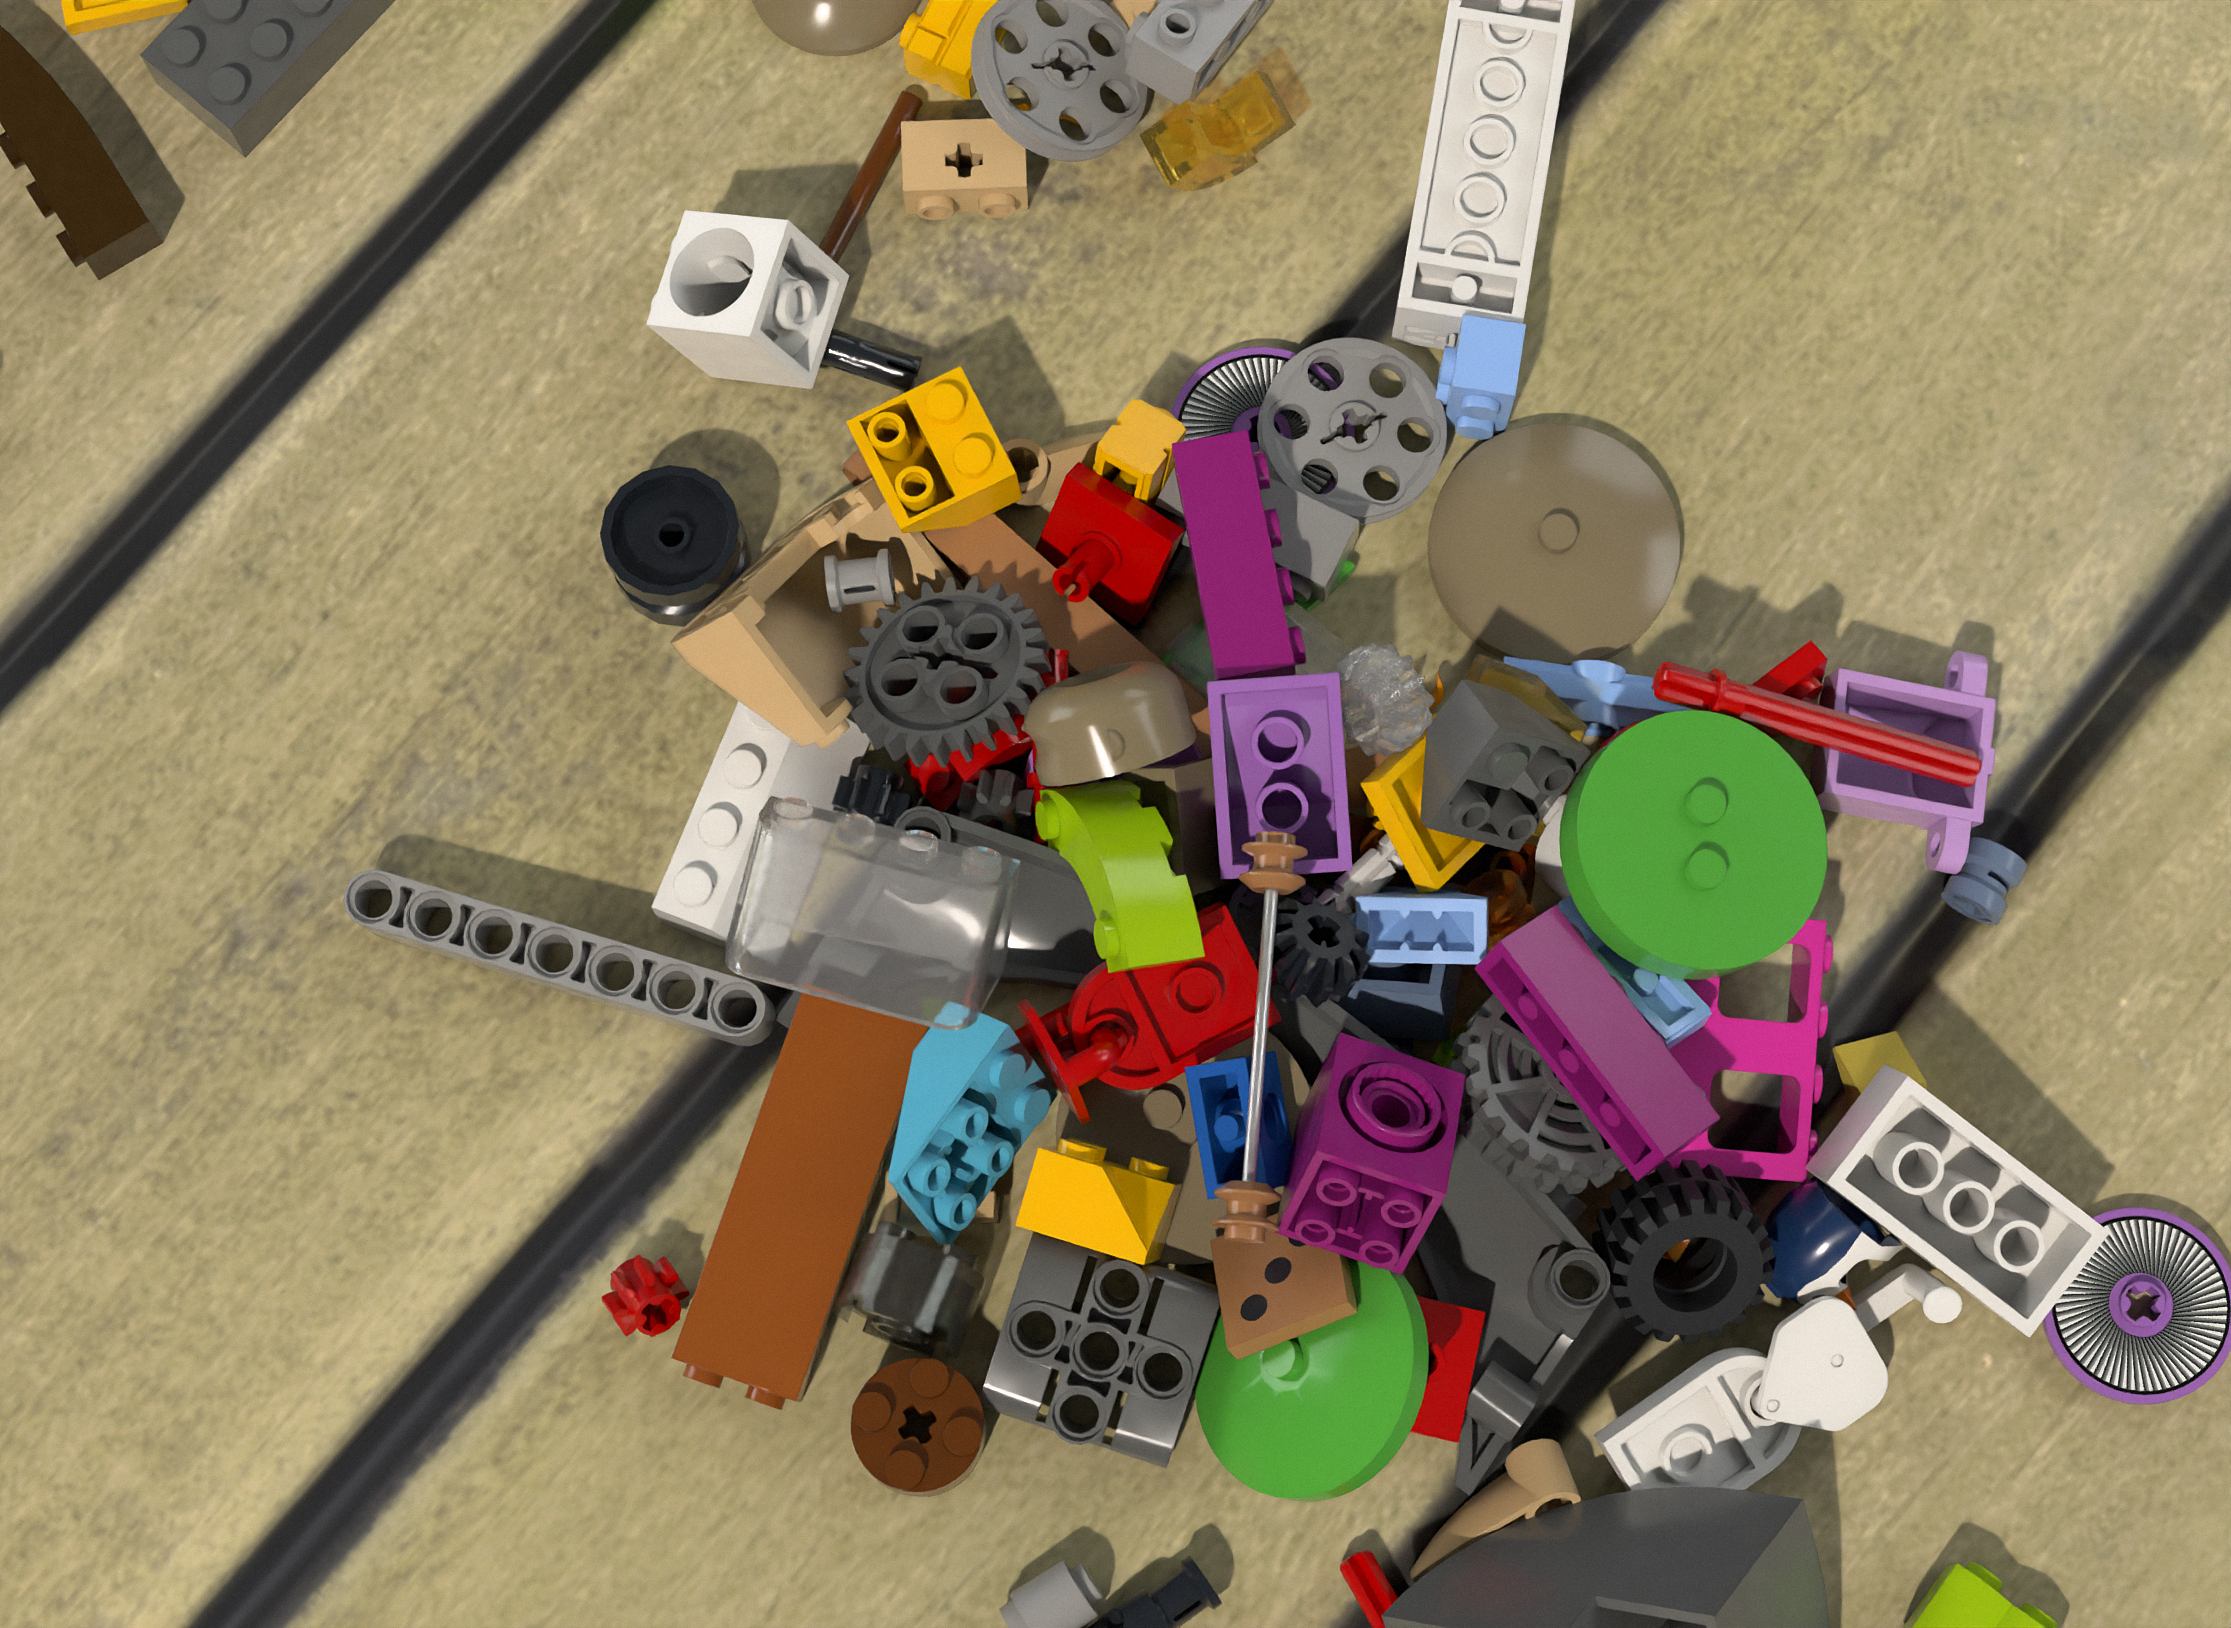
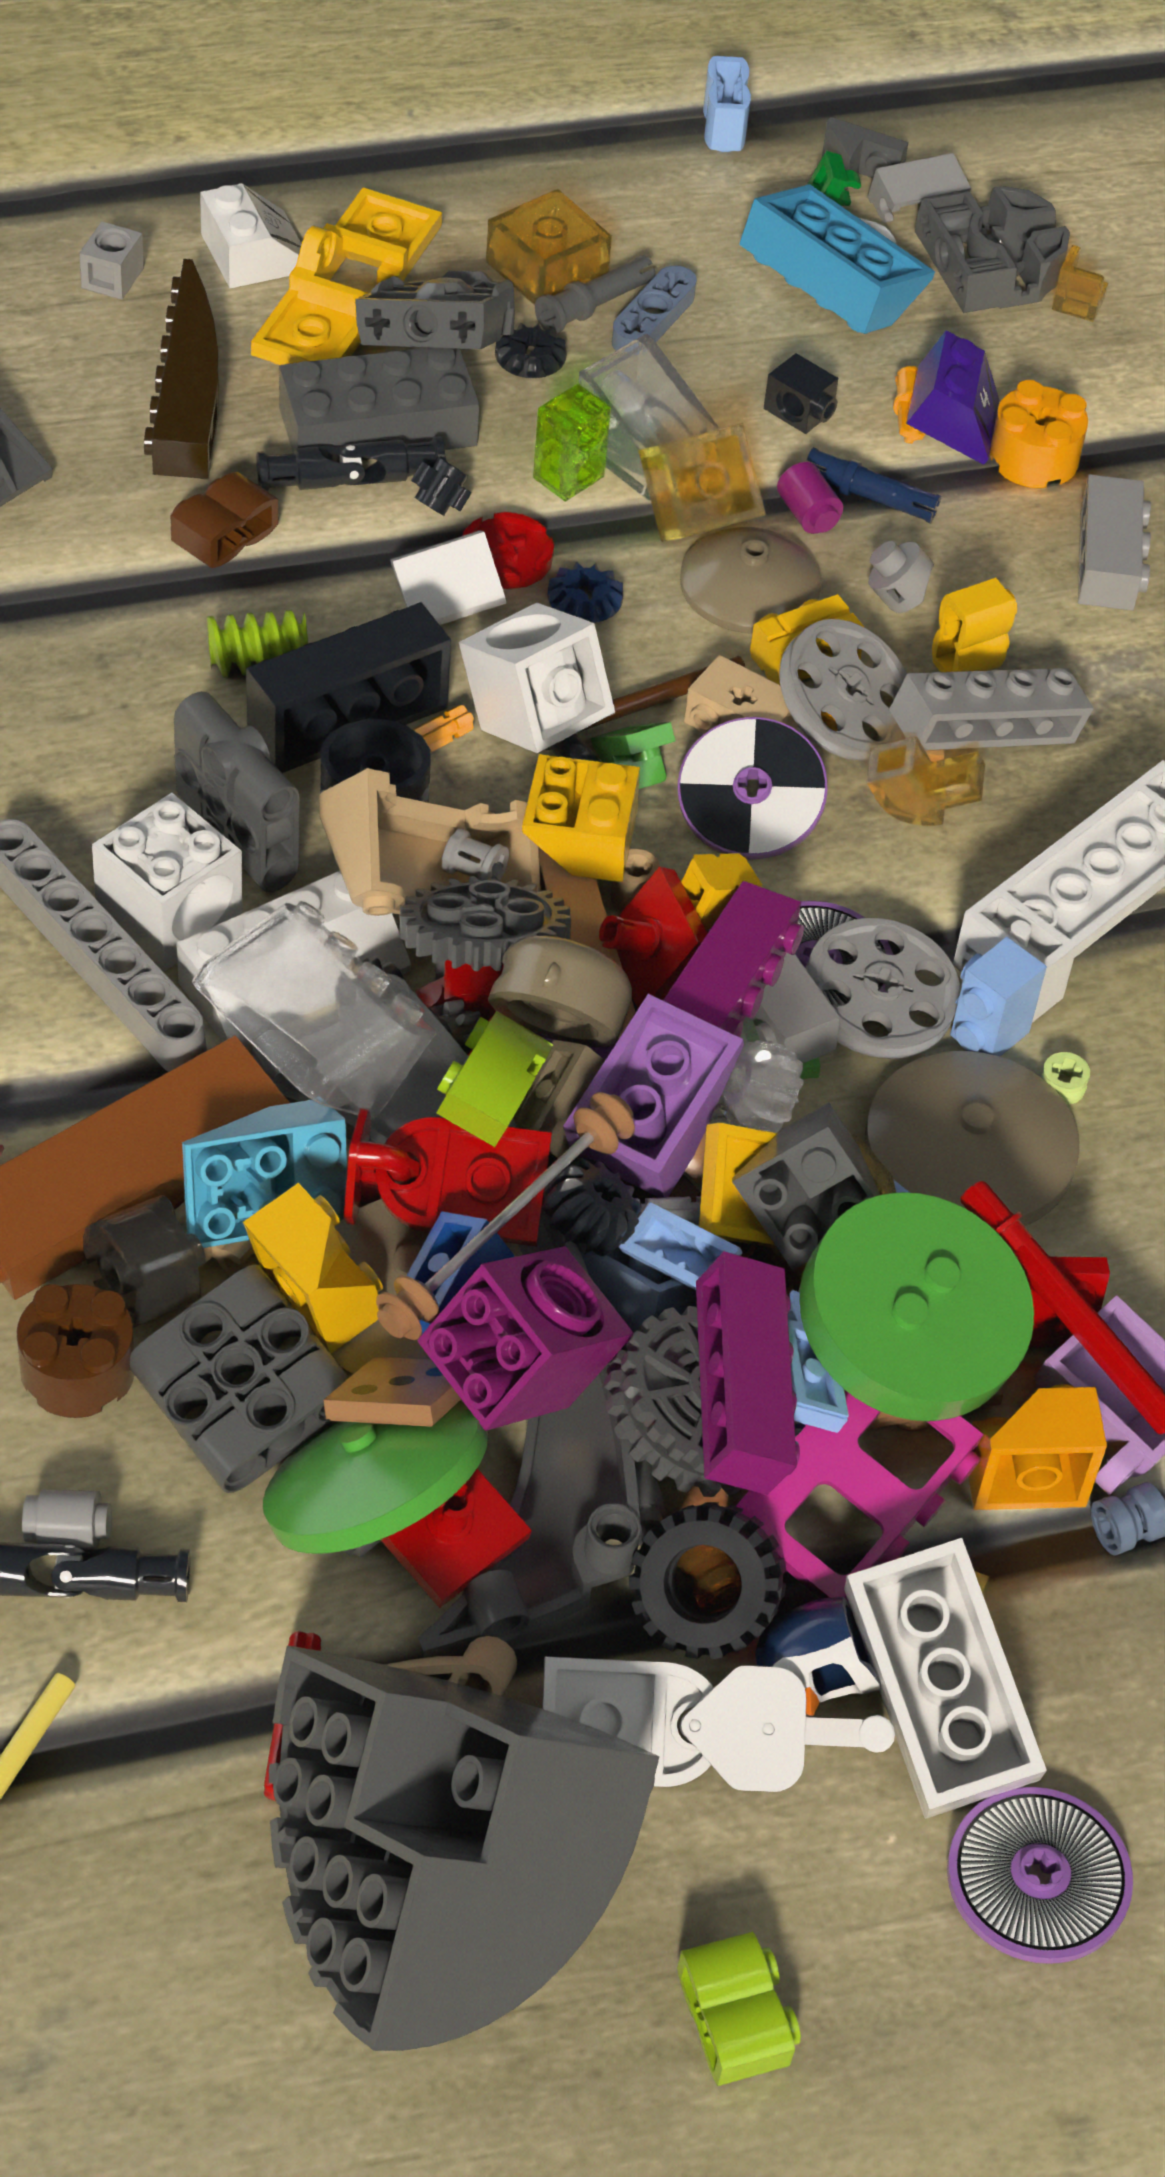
camera: 30 degrees right, 25 degrees down
(236, 300) = (224, 519): none -> reddish brown brick
(316, 114) = (342, 465): none -> black piece
(411, 446) = (253, 641): none -> lime piece
(432, 87) = (441, 486): none -> black gear
(533, 209) = (451, 578): none -> white slope
(558, 116) = (517, 546): none -> red tile
(558, 447) = (371, 671): none -> black brick
(565, 680) = (237, 789): none -> dark grey connector
(576, 832) = (167, 877): none -> white brick
(675, 420) = (440, 730): none -> light orange axle
(684, 142) = (567, 597): none -> dark blue gear
(894, 300) = (637, 747): none -> bright green slope
(1065, 219) = (786, 771): none -> piece
(1598, 387) = (1069, 1065): none -> yellowish green bush
(1877, 870) = (1042, 1453): none -> light orange slope

